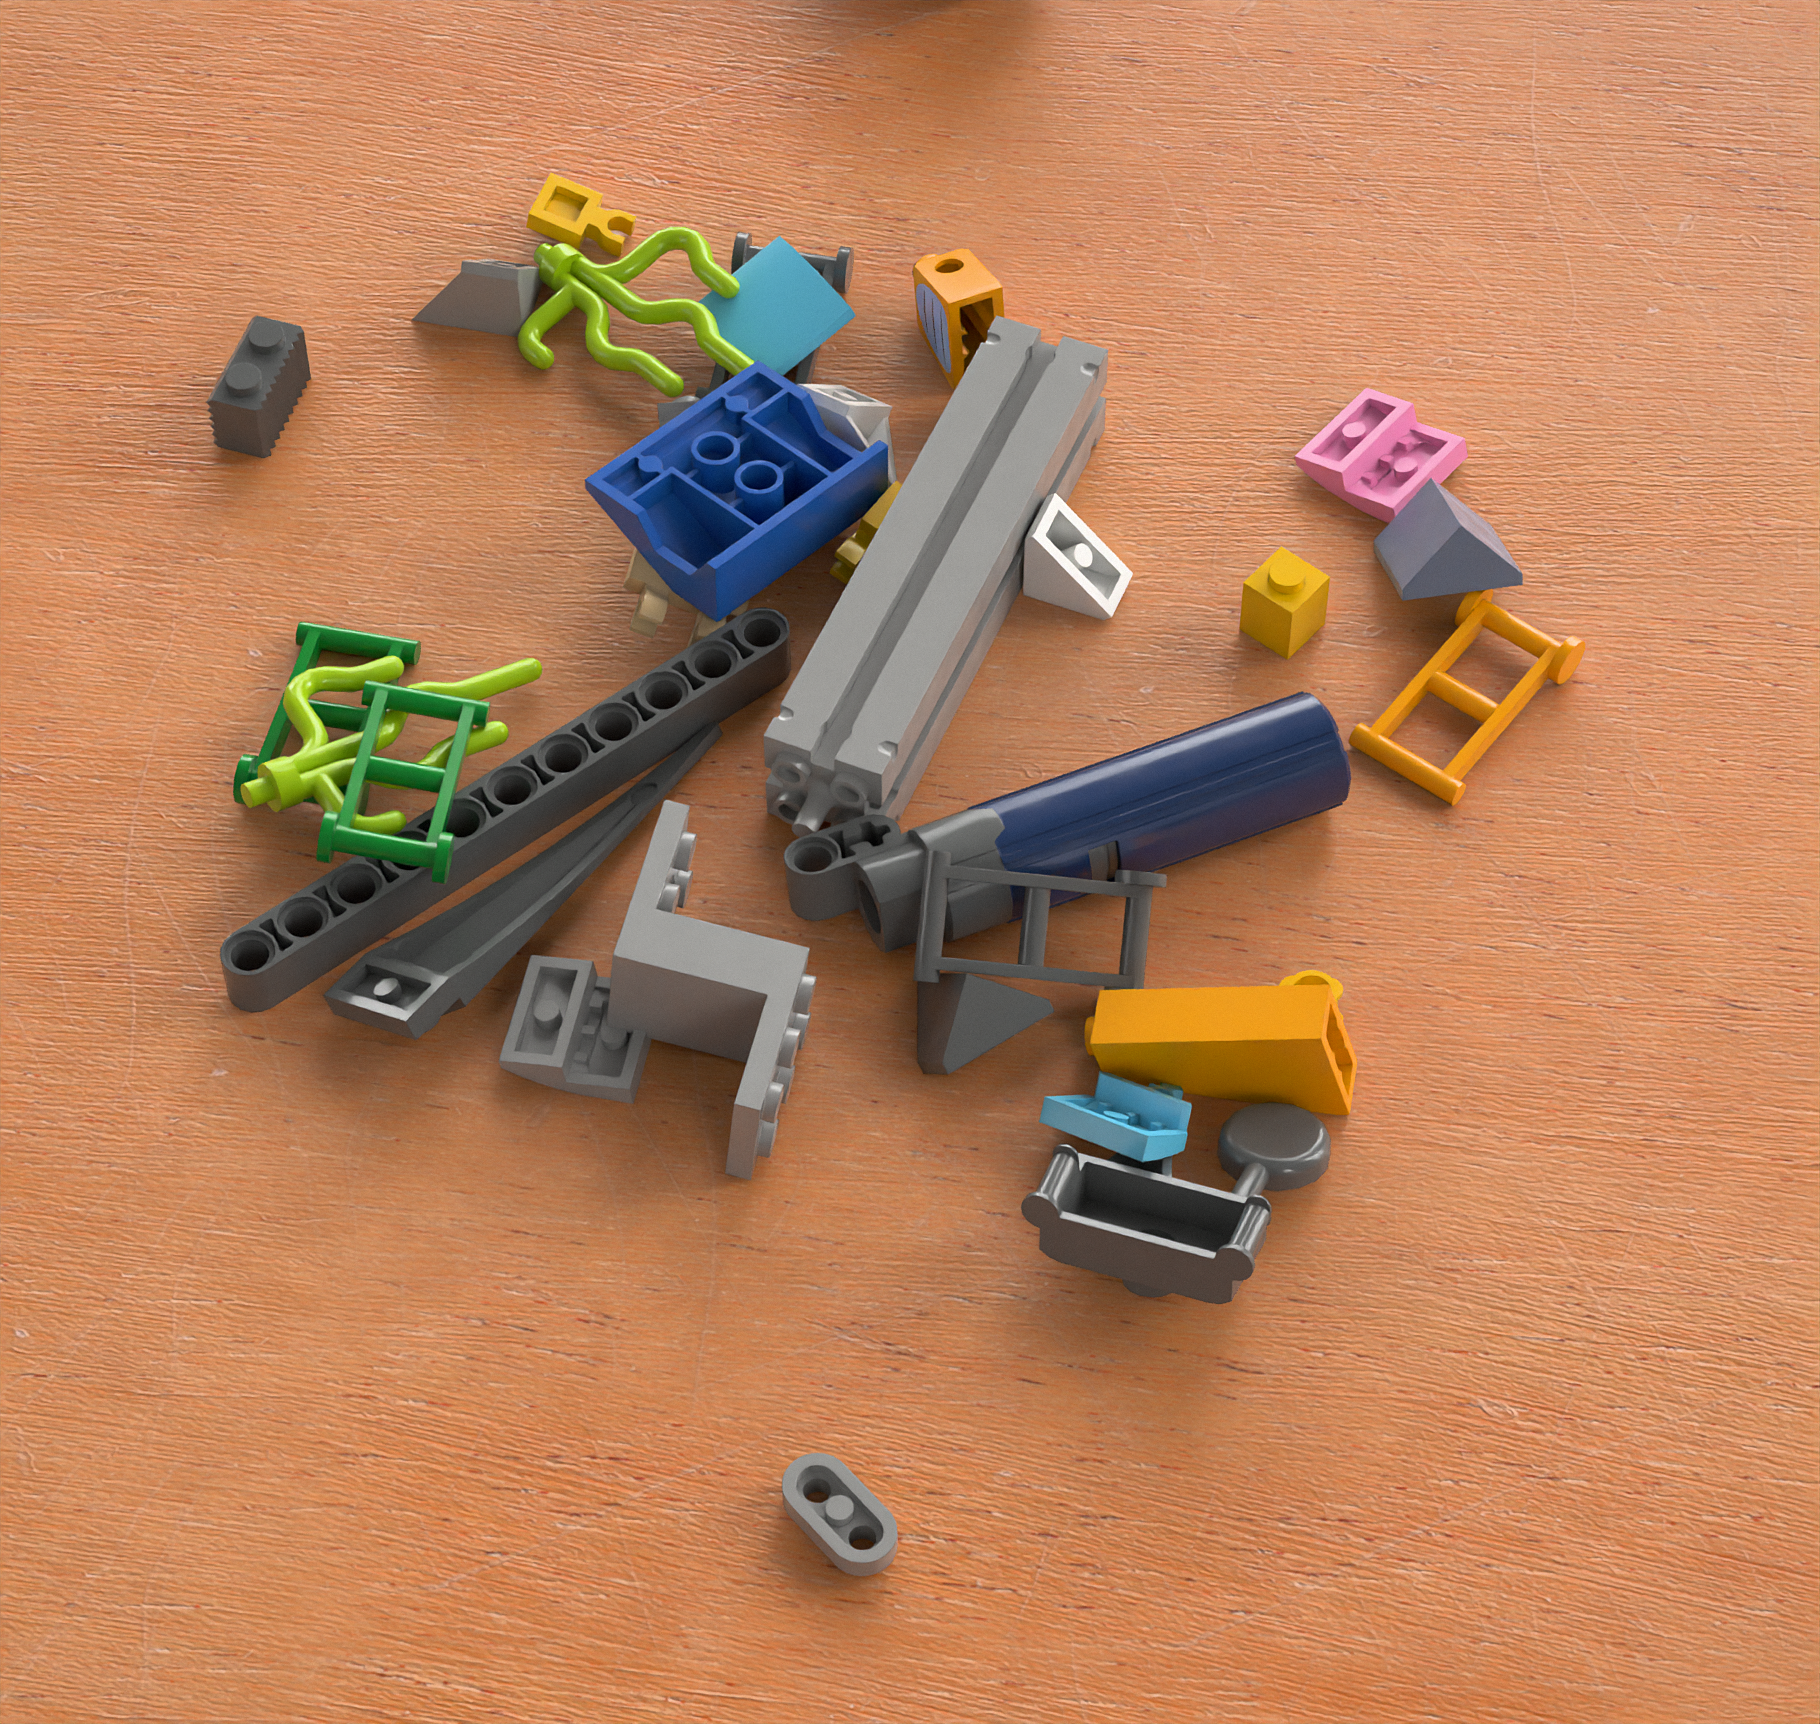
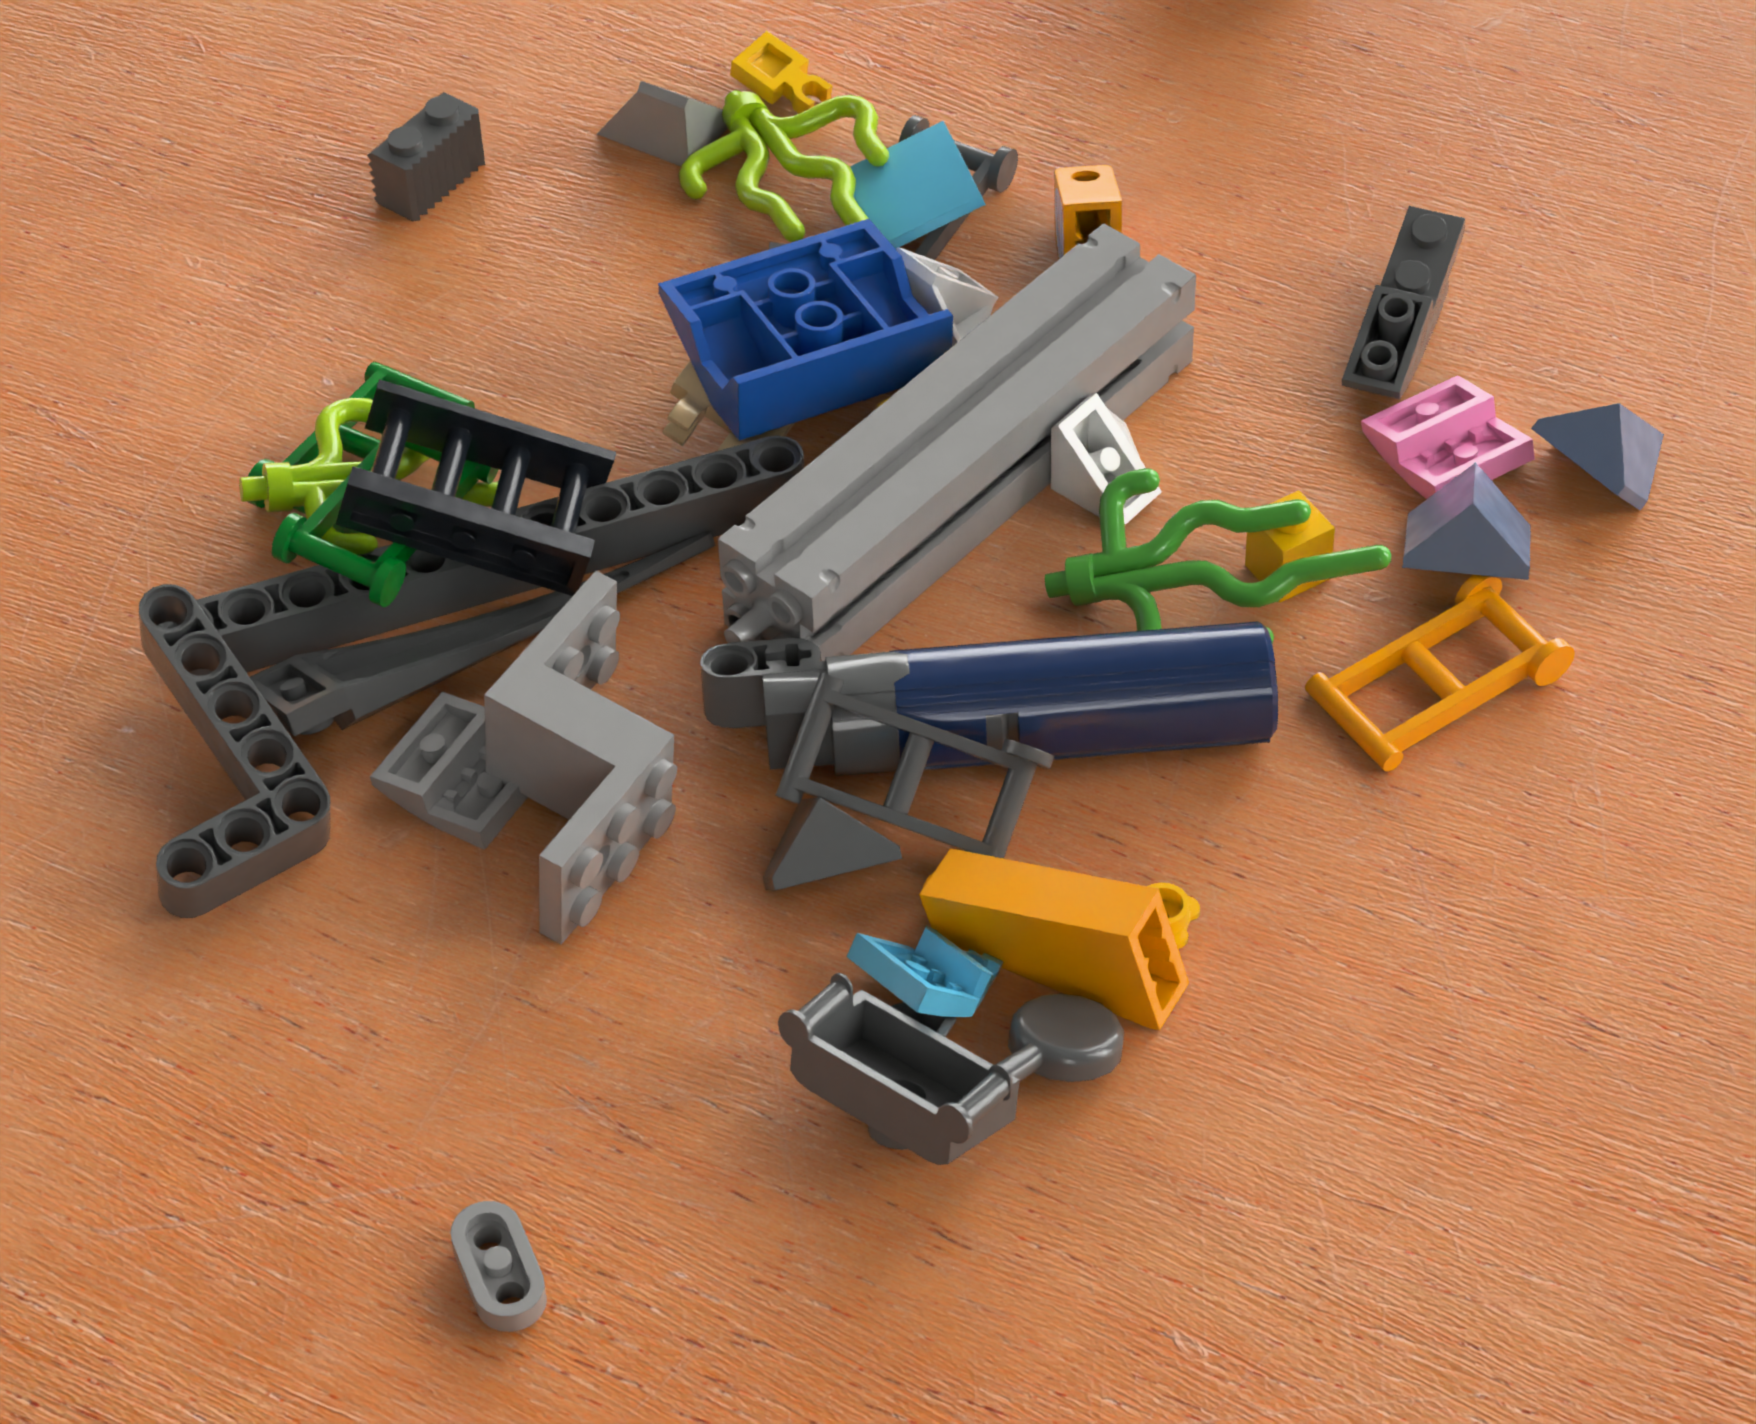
camera: 20 degrees right, 5 degrees down
(359, 1070) = (239, 749): none -> dark grey beam
(493, 786) = (462, 529): none -> black fence
(1140, 667) = (1132, 571): none -> bright green plant
(1292, 326) = (1405, 304): none -> dark grey slope
(1538, 429) = (1609, 446): none -> sand blue slope

